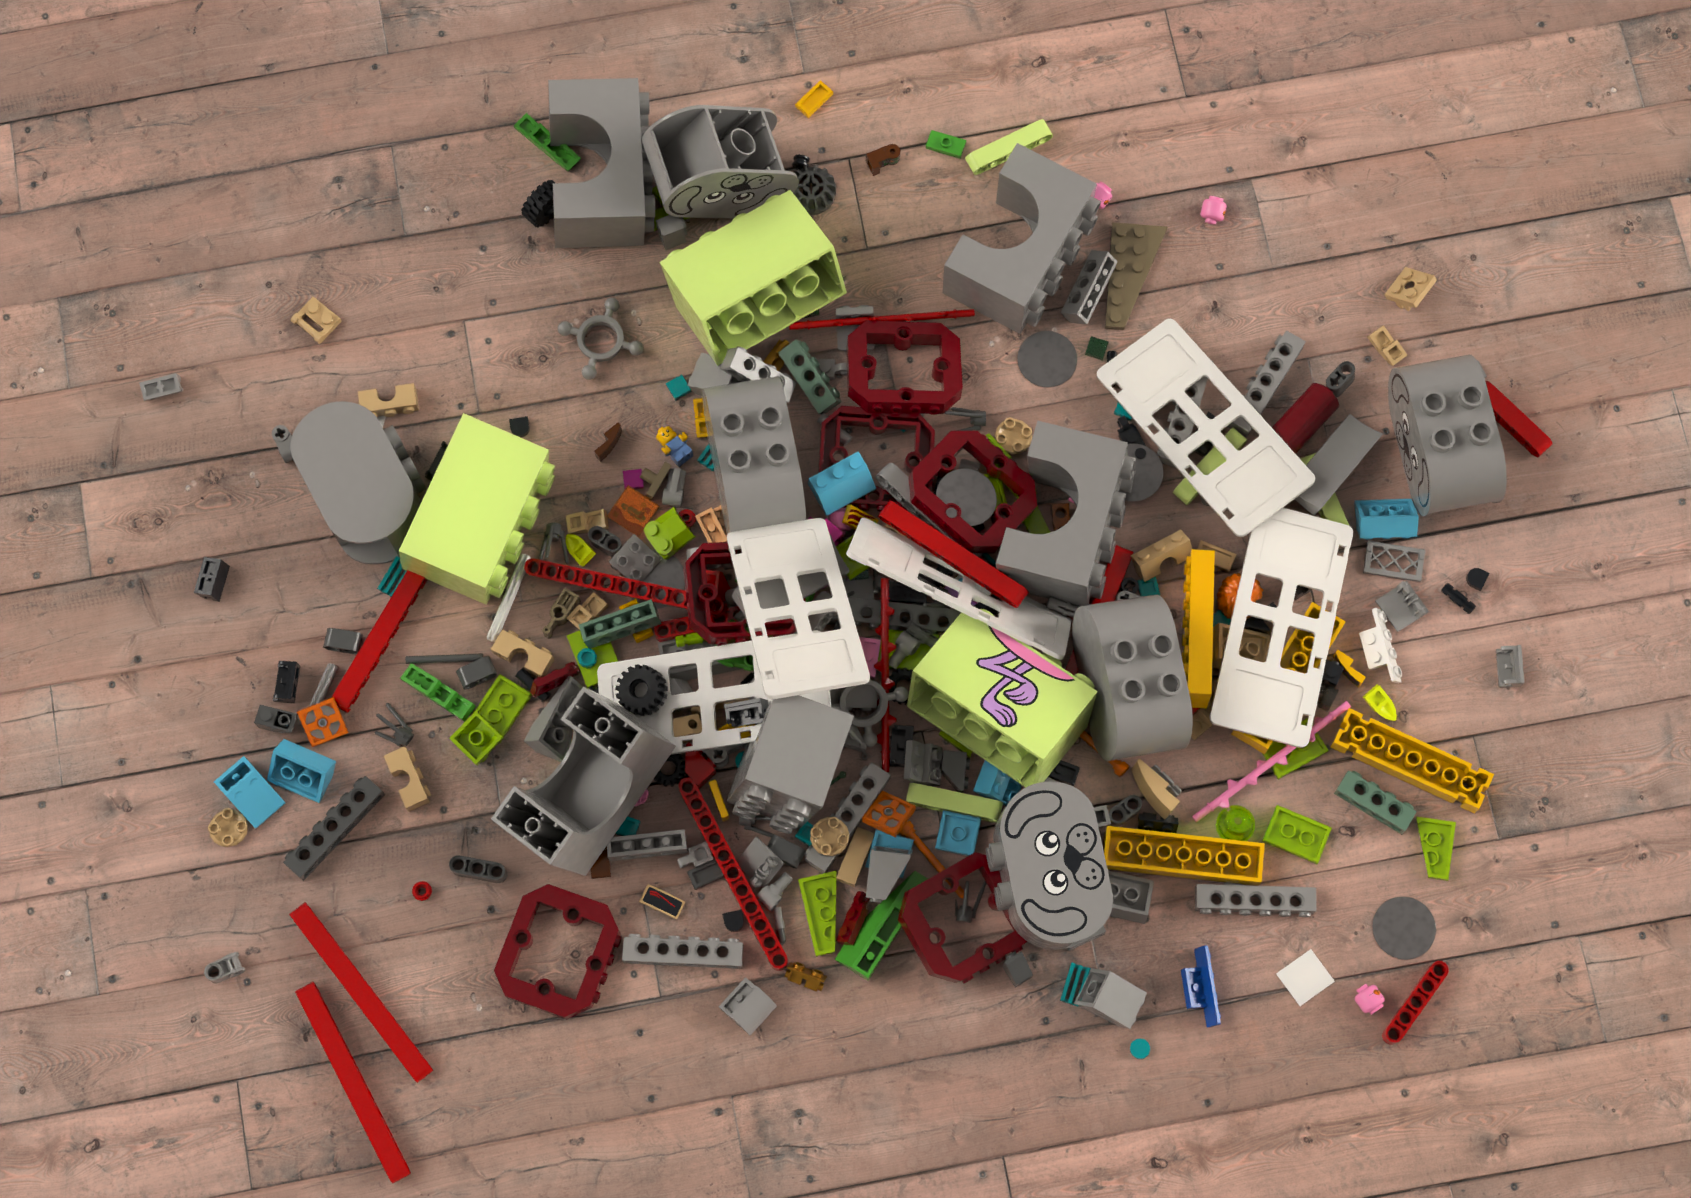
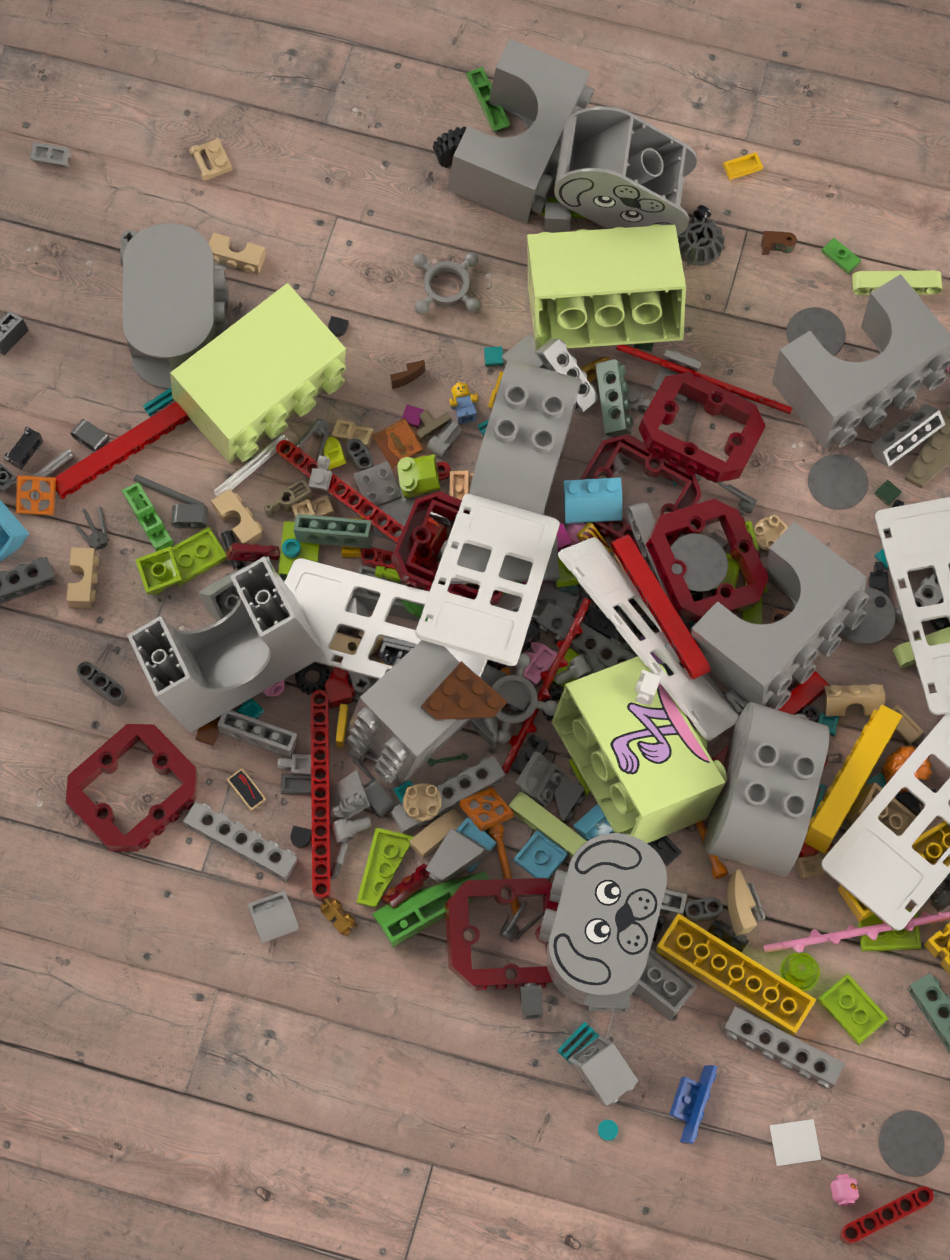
camera: 25 degrees right, 5 degrees down
(422, 884) = (43, 674): red plate -> none
(583, 579) = (321, 477): none -> light grey plate
(654, 693) = (330, 602): black tyre -> none
(837, 732) = (463, 697): none -> reddish brown plate
(956, 220) = (823, 325): none -> flat silver sticker
(986, 638) = (647, 687): none -> white brick

